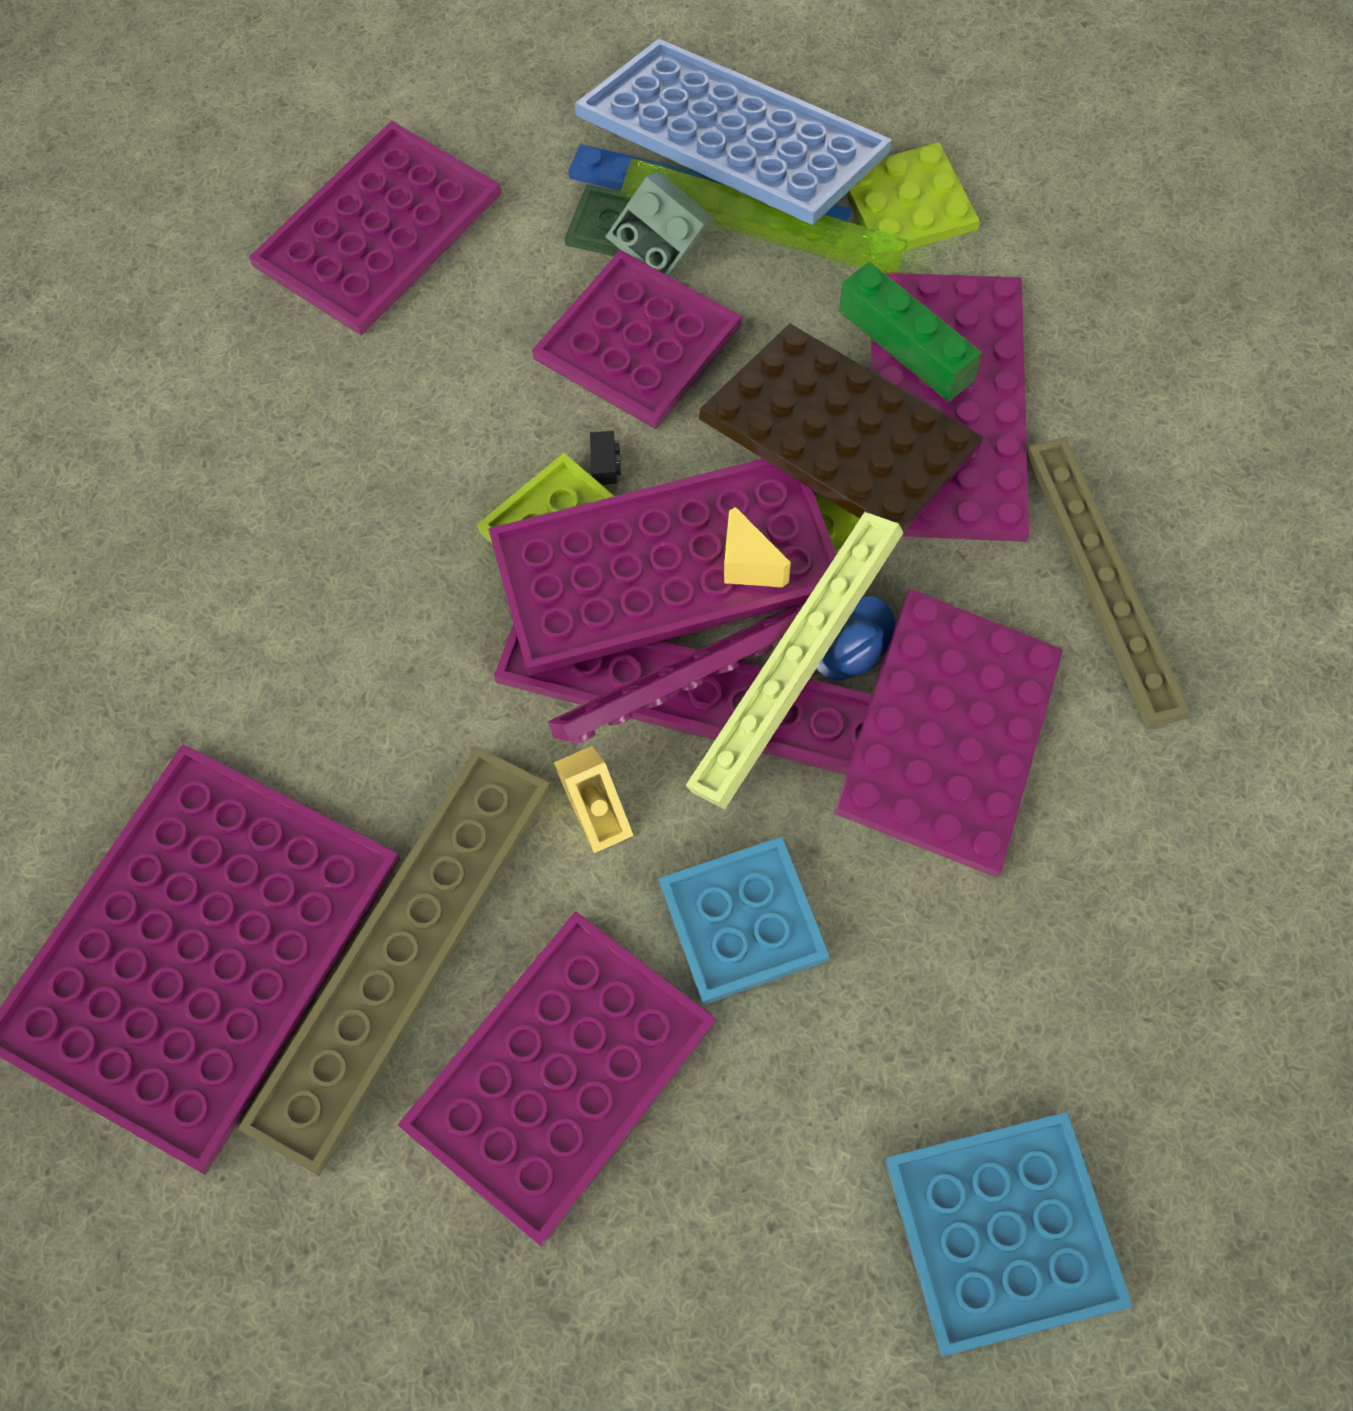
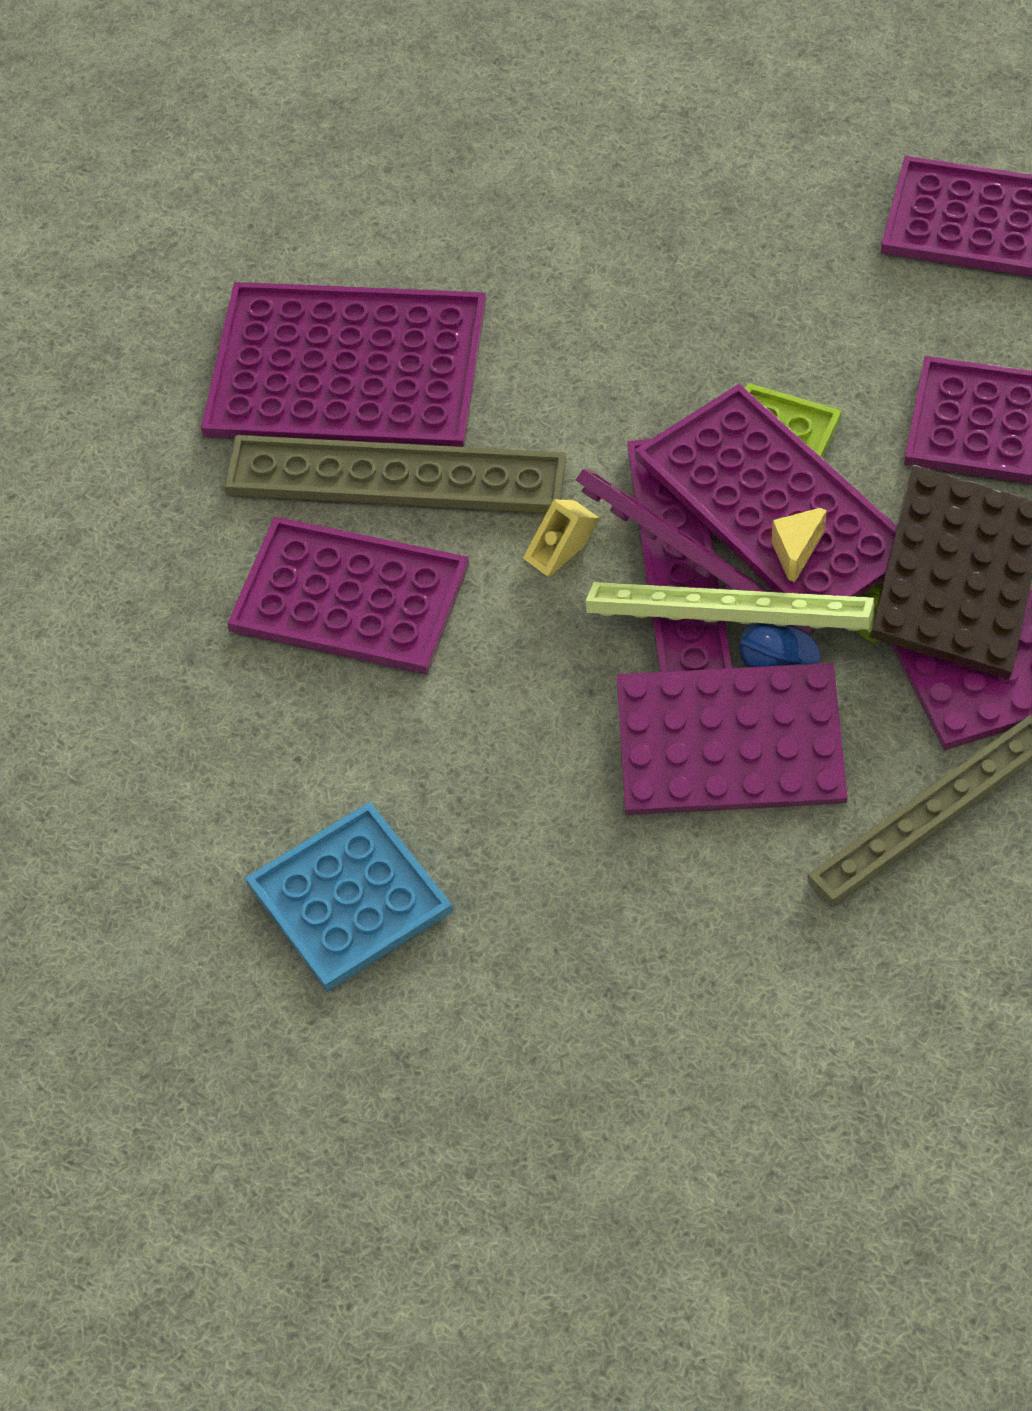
camera: 70 degrees right, 10 degrees down
(603, 457) = (855, 440): black piece -> none
(743, 920) = (511, 661): dark azure plate -> none

